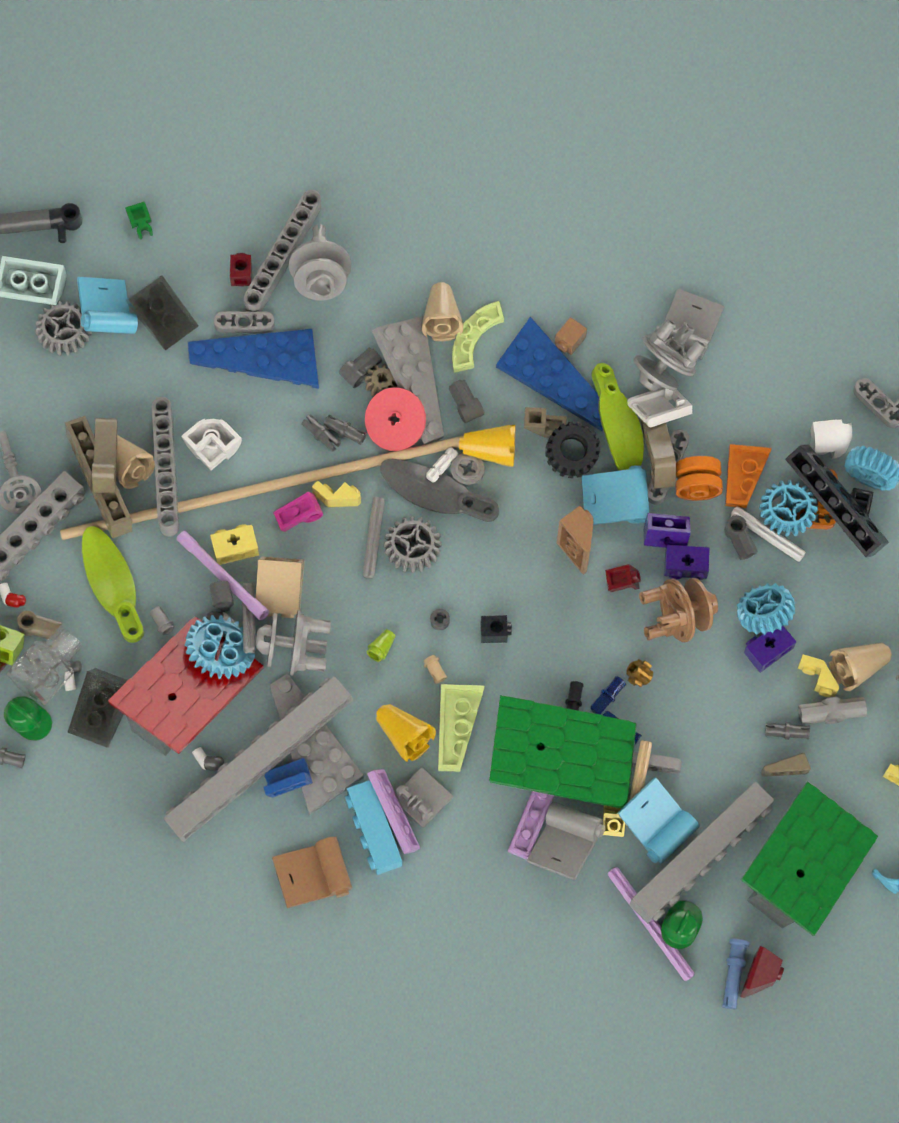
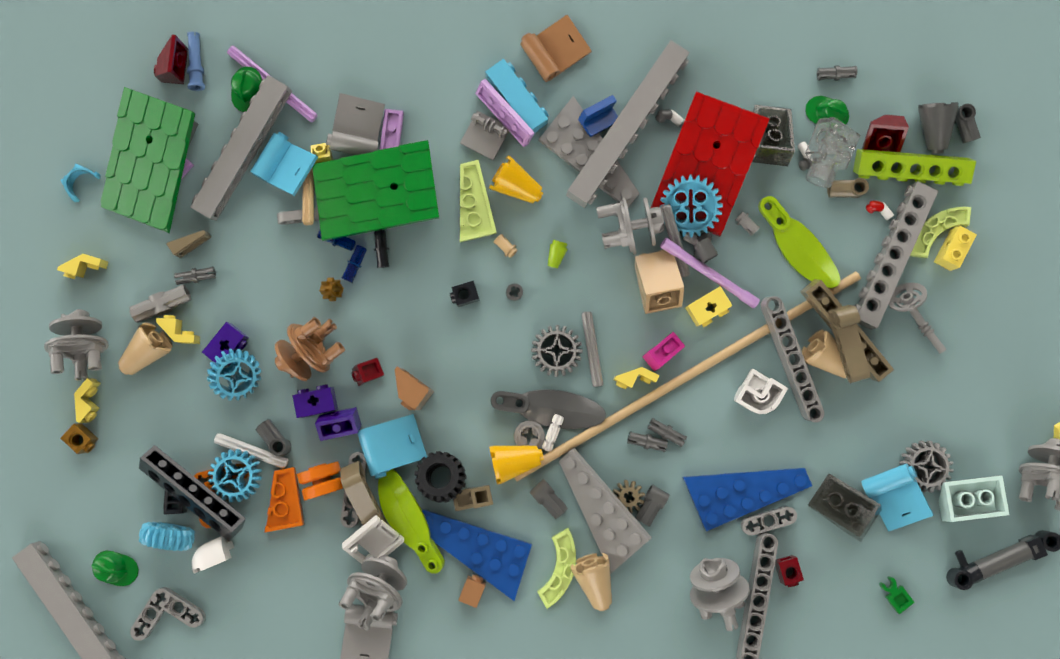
camera: 160 degrees right, 15 degrees up
(405, 407) = (599, 474): coral piece -> none

